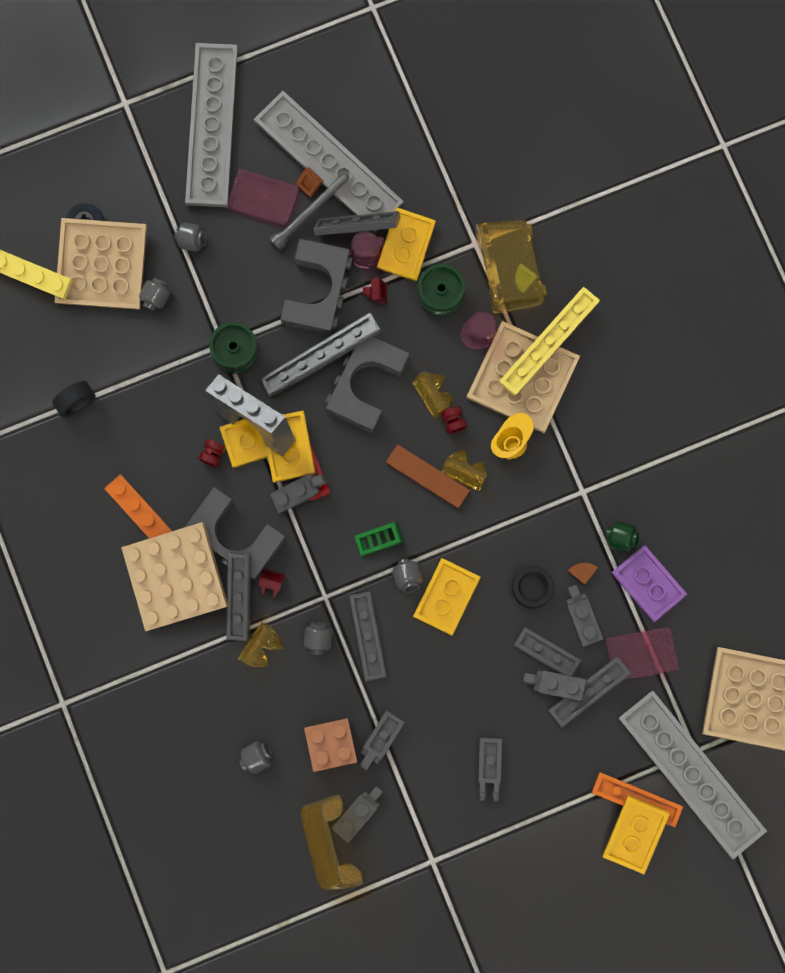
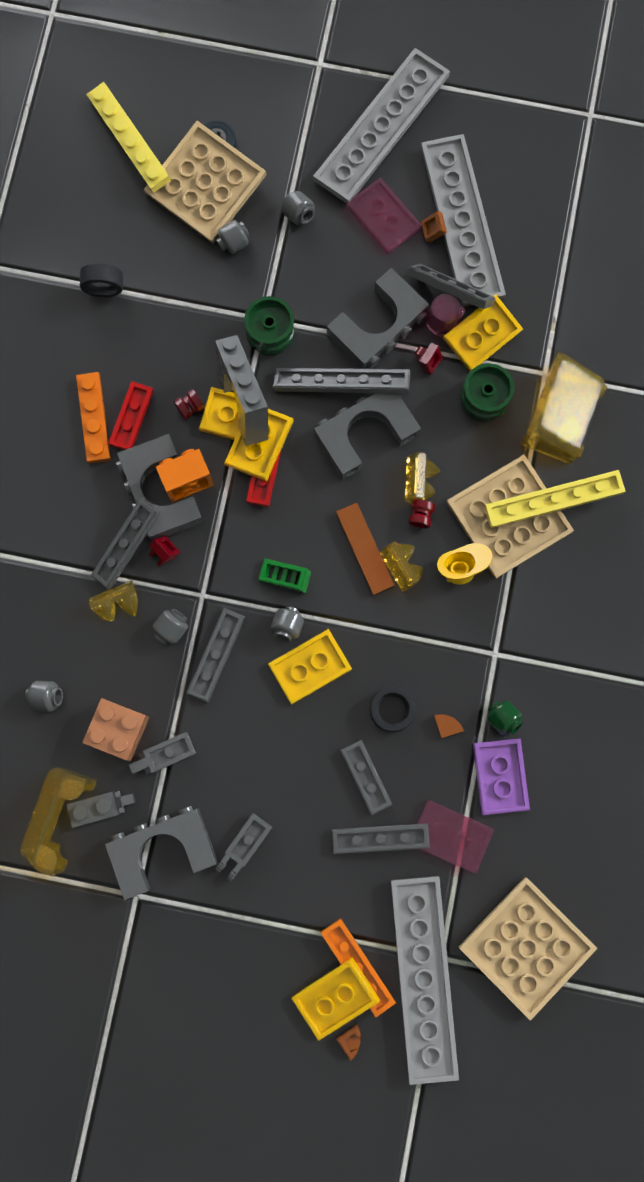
camera: 30 degrees right, 0 degrees up
(171, 492) = (131, 416): none -> red plate
(175, 576) = (82, 489): tan plate -> none
(249, 511) = (184, 475): none -> orange brick
(280, 238) = (375, 259): dark grey piece -> none
(297, 492) = (240, 487): dark grey hinge -> none
(435, 783) = (126, 851): none -> dark grey arch
(479, 330) = (497, 449): clear pink hat -> none
(557, 685) = (355, 813): dark grey hinge -> none
(583, 617) = (420, 767): dark grey hinge -> none
(668, 858) = (350, 1041): none -> dark orange tile

